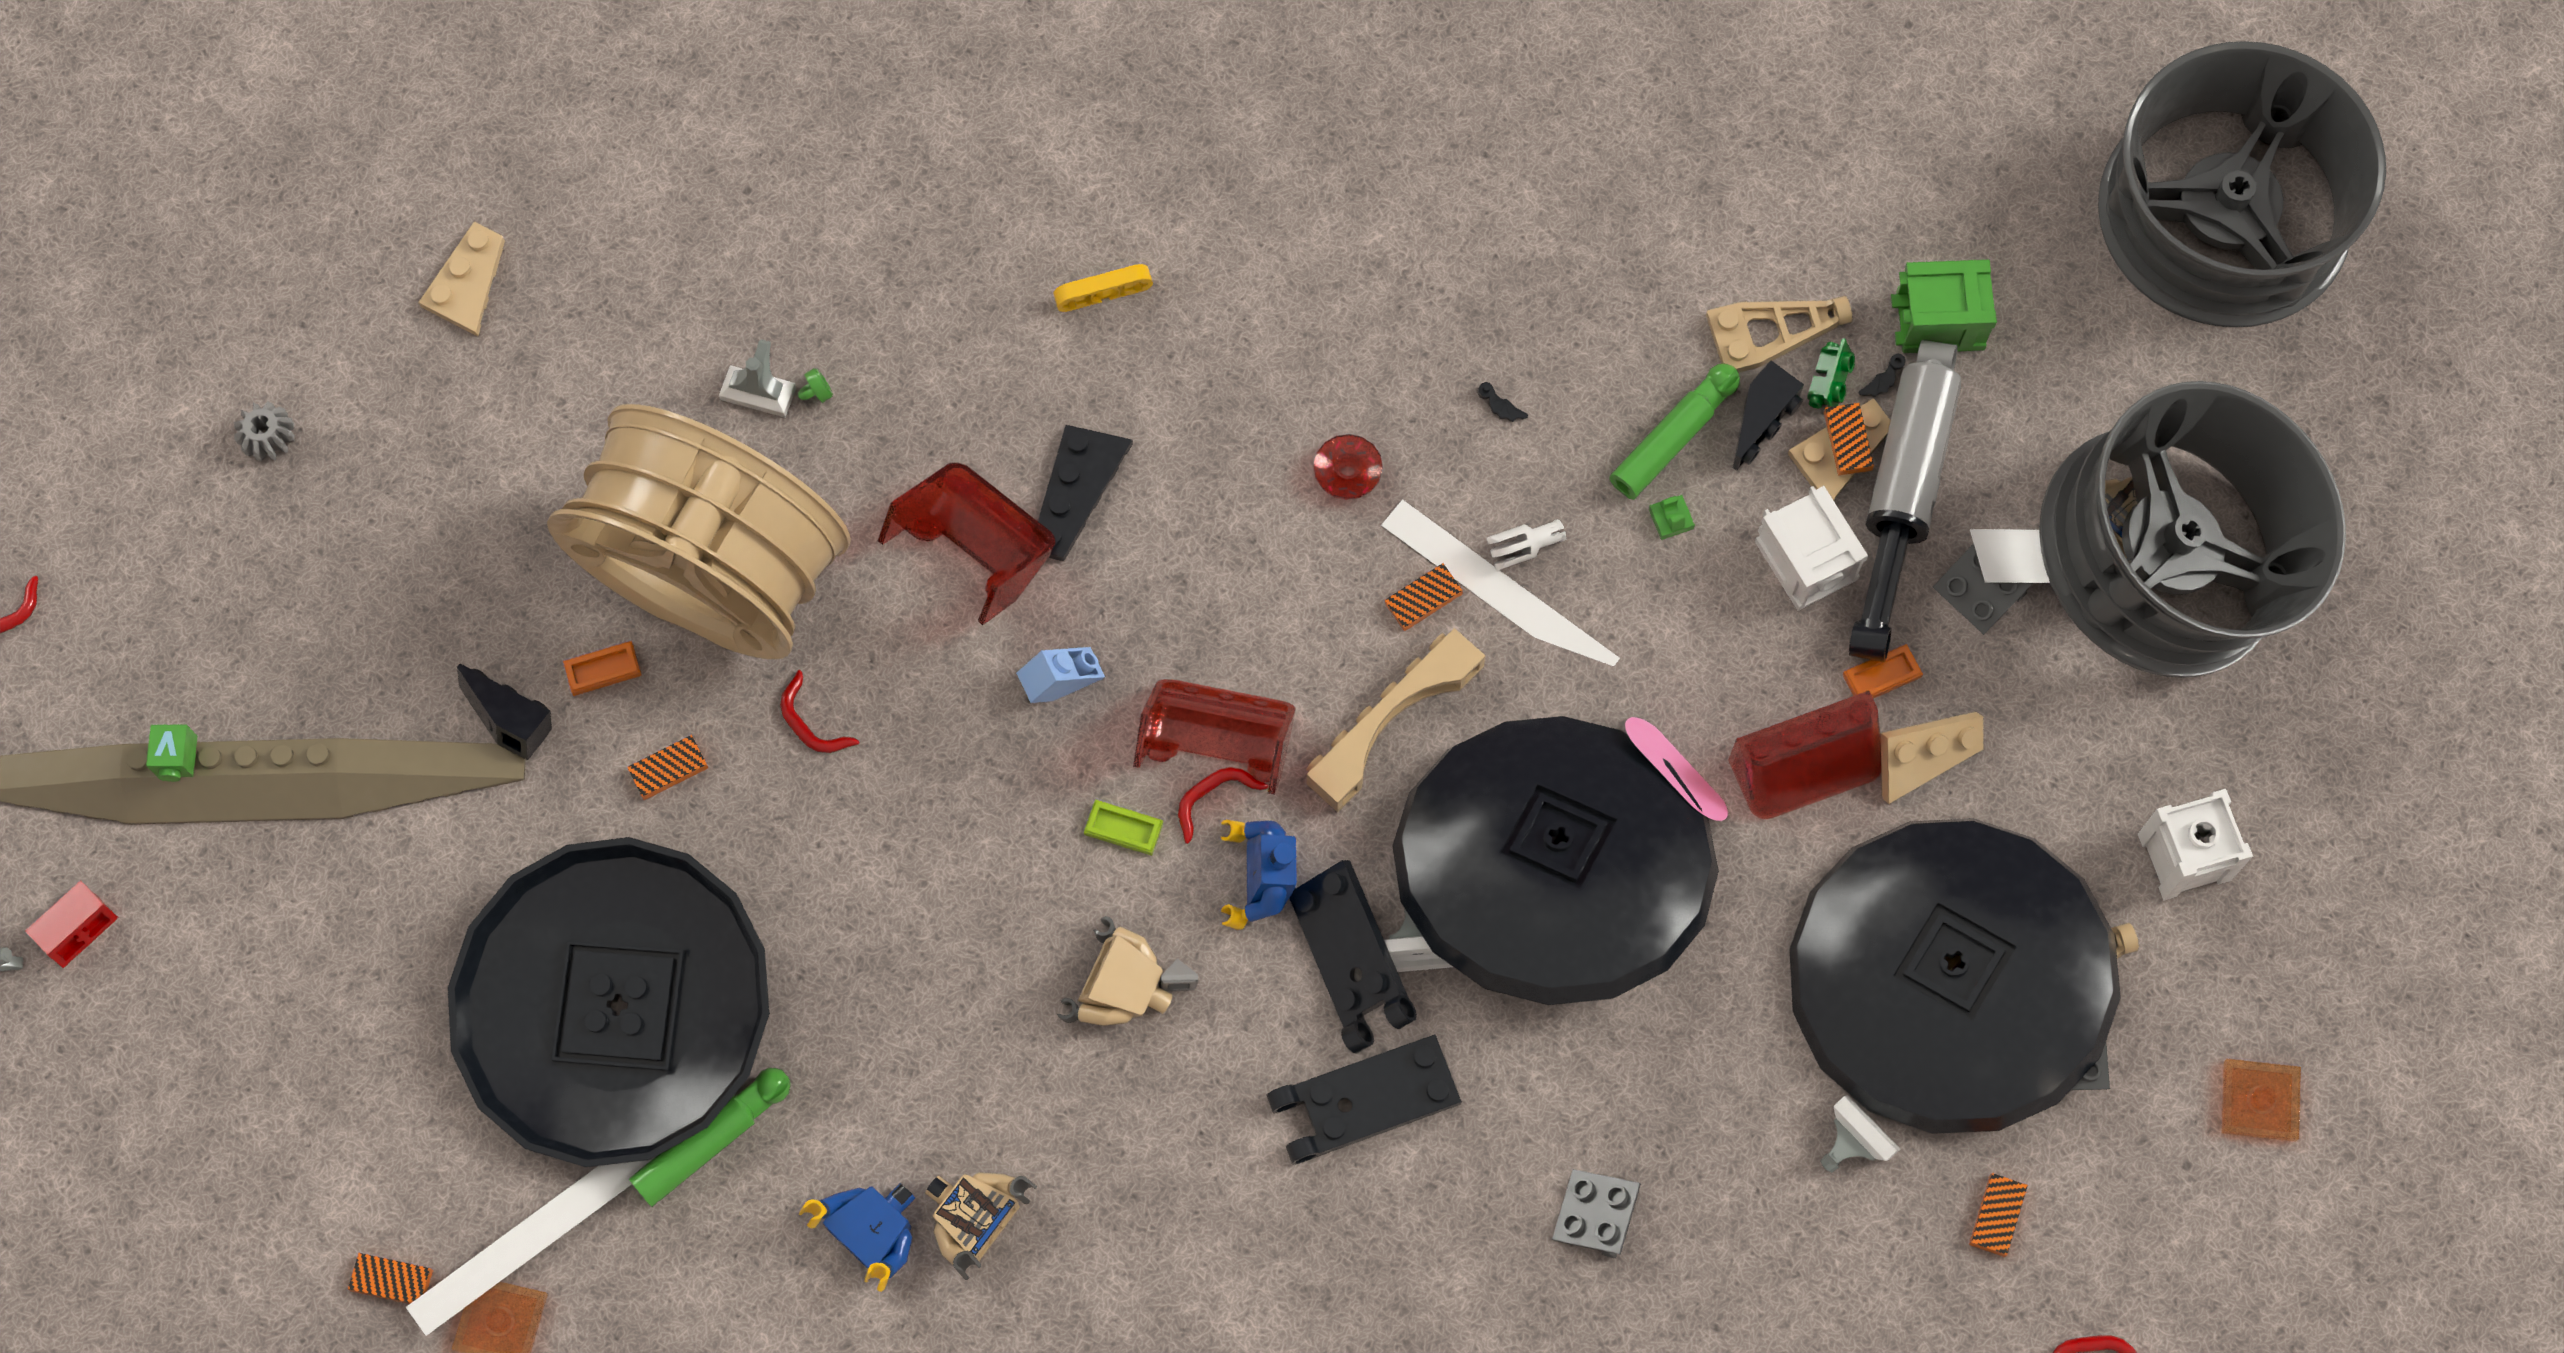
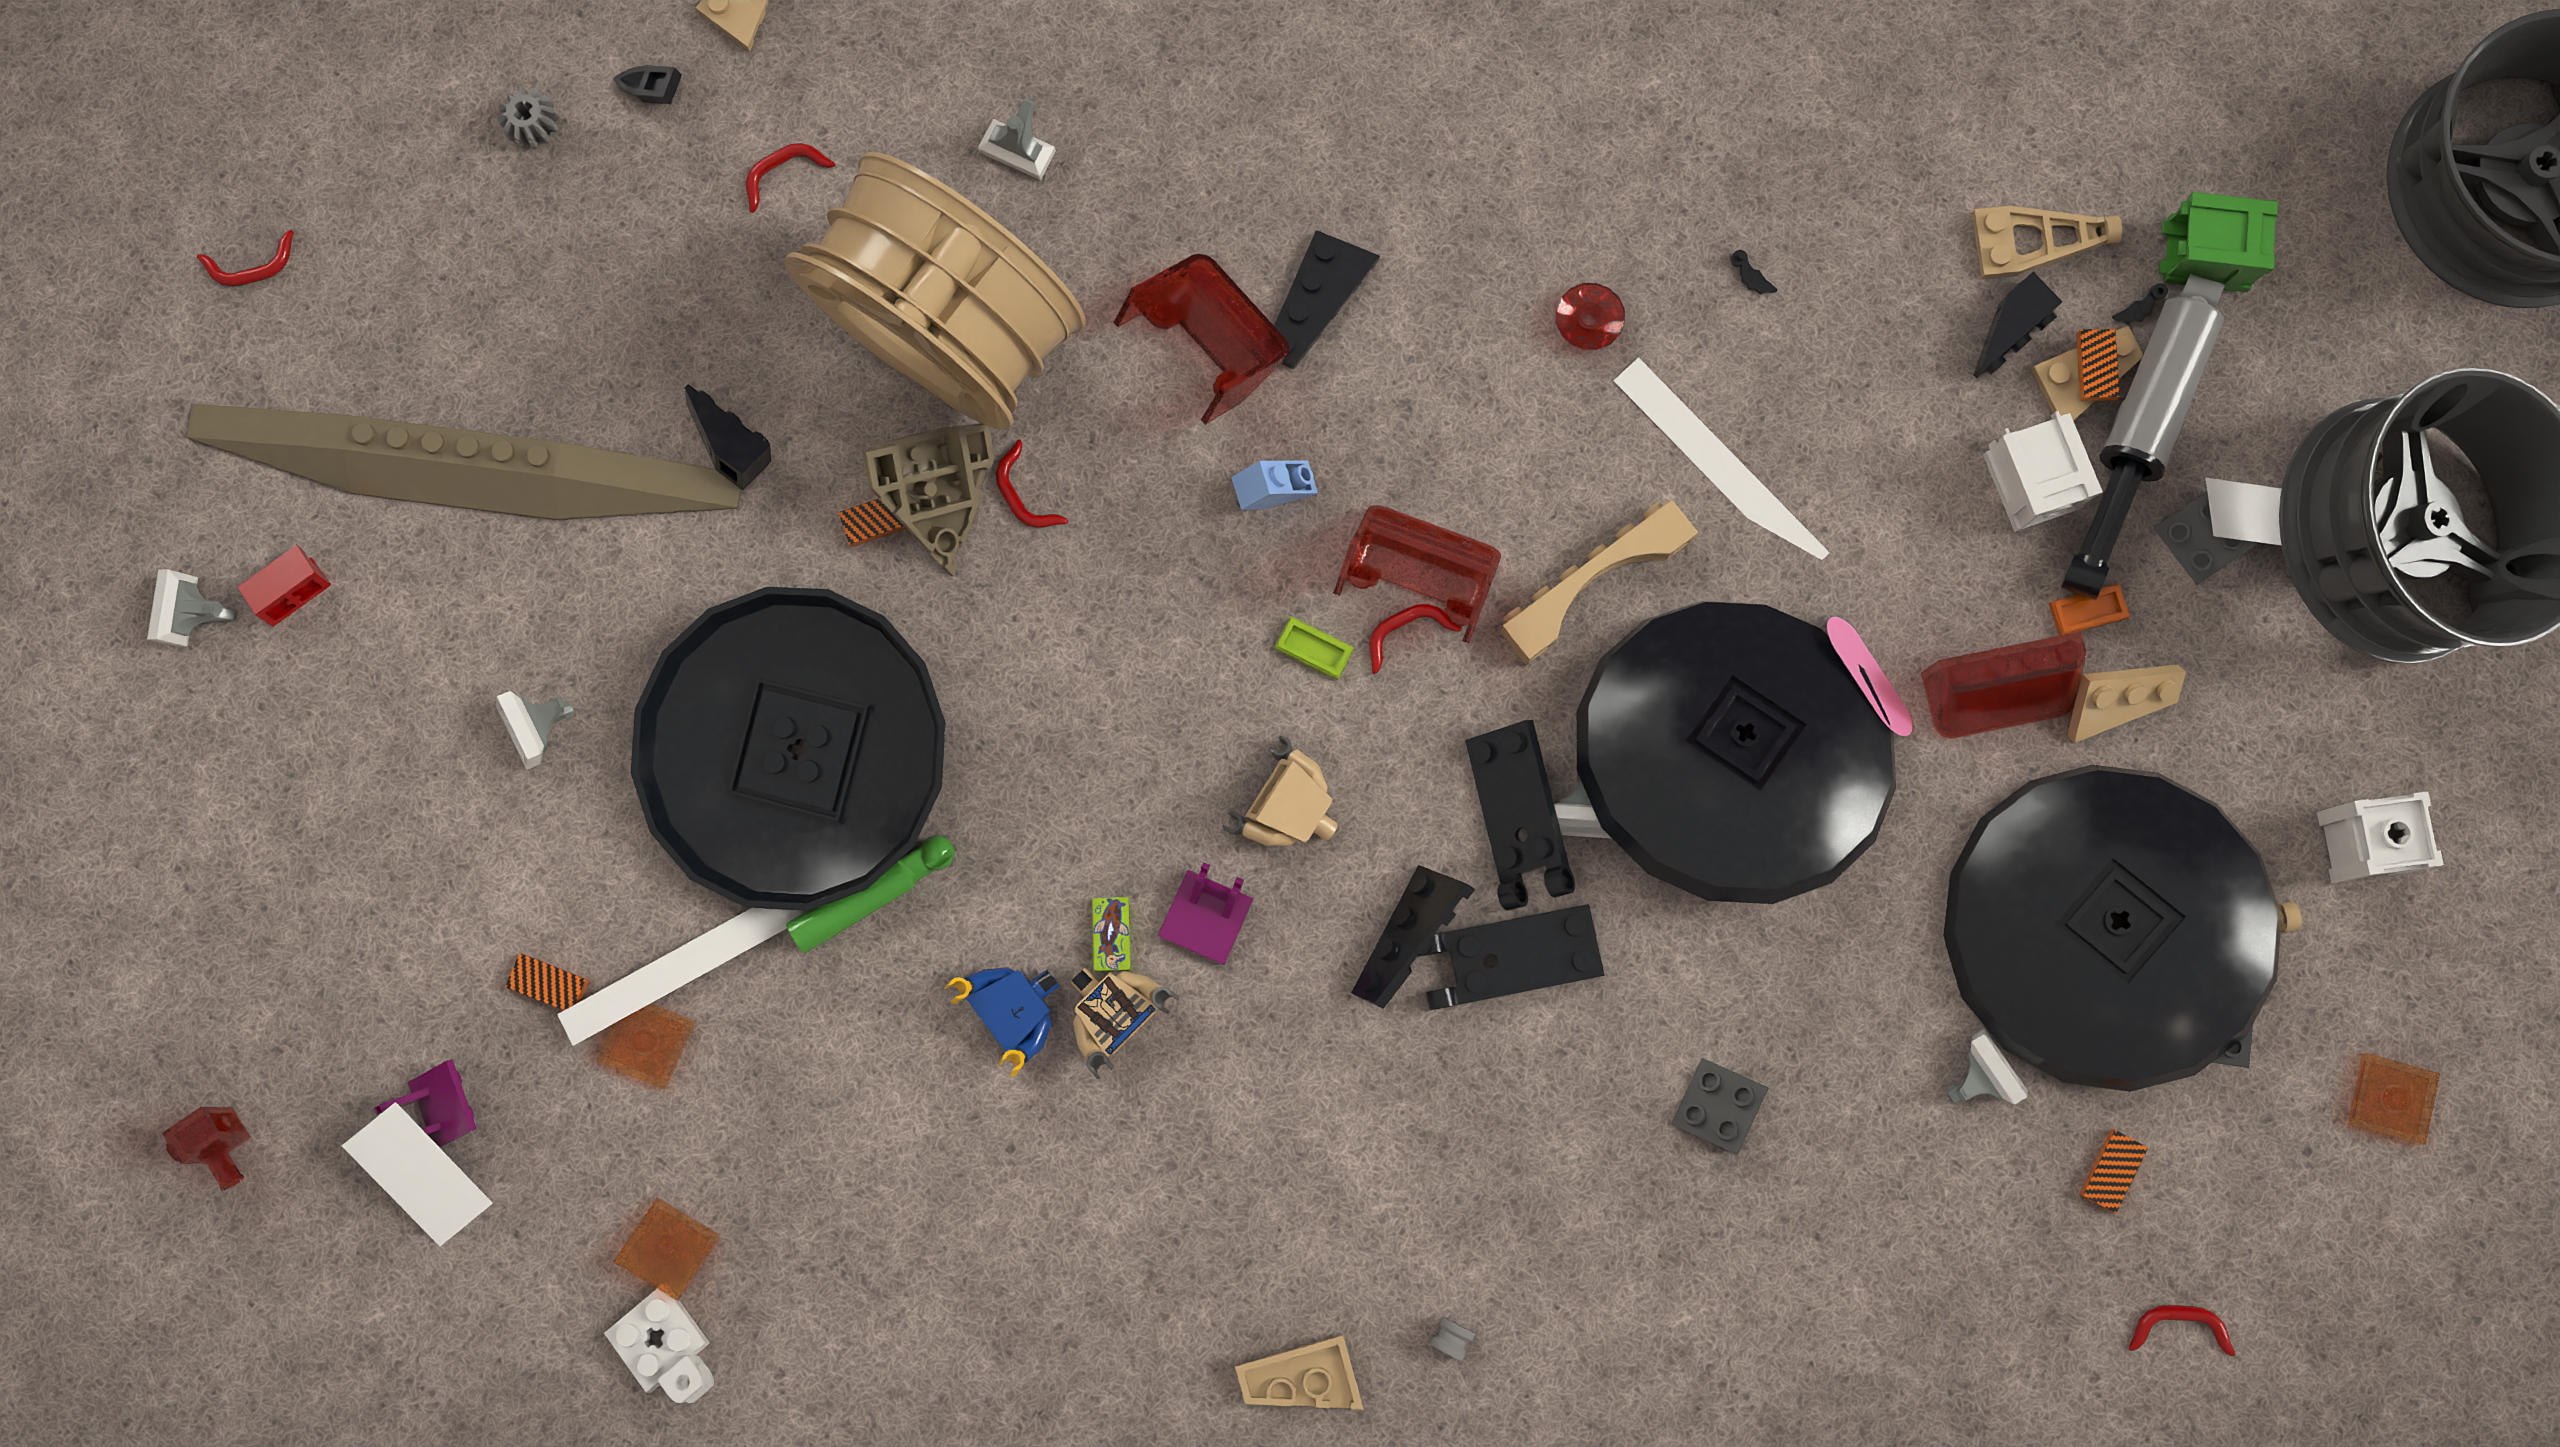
camera: 10 degrees right, 10 degrees up
(171, 751) = (394, 432): bright green brick -> none
(340, 1022) = (530, 724): none -> white piece
(382, 380) = (650, 83): none -> black plate
(517, 437) = (776, 159): none -> red animal
(602, 668) = (827, 408): orange tile -> none
(720, 724) = (933, 484): none -> dark tan wedge
(816, 386) = (1075, 153): bright green tile -> none
(960, 1139) = (1111, 934): none -> tile
(1053, 1105) = (1206, 915): none -> magenta plate
(1109, 284) = (1374, 92): yellow beam -> none
(1178, 978) = (1346, 808): light grey slope -> none
(1268, 1063) = (1417, 917): none -> black wing
(1269, 870) = (1451, 714): blue torso -> none
(1423, 597) = (1645, 461): tile -> none
(1527, 540) = (1756, 421): white arm -> none
(1671, 517) = (1904, 417): bright green tile -> none
(1674, 431) = (1922, 329): bright green piece -> none
(1836, 363) = (2095, 283): green hinge -> none

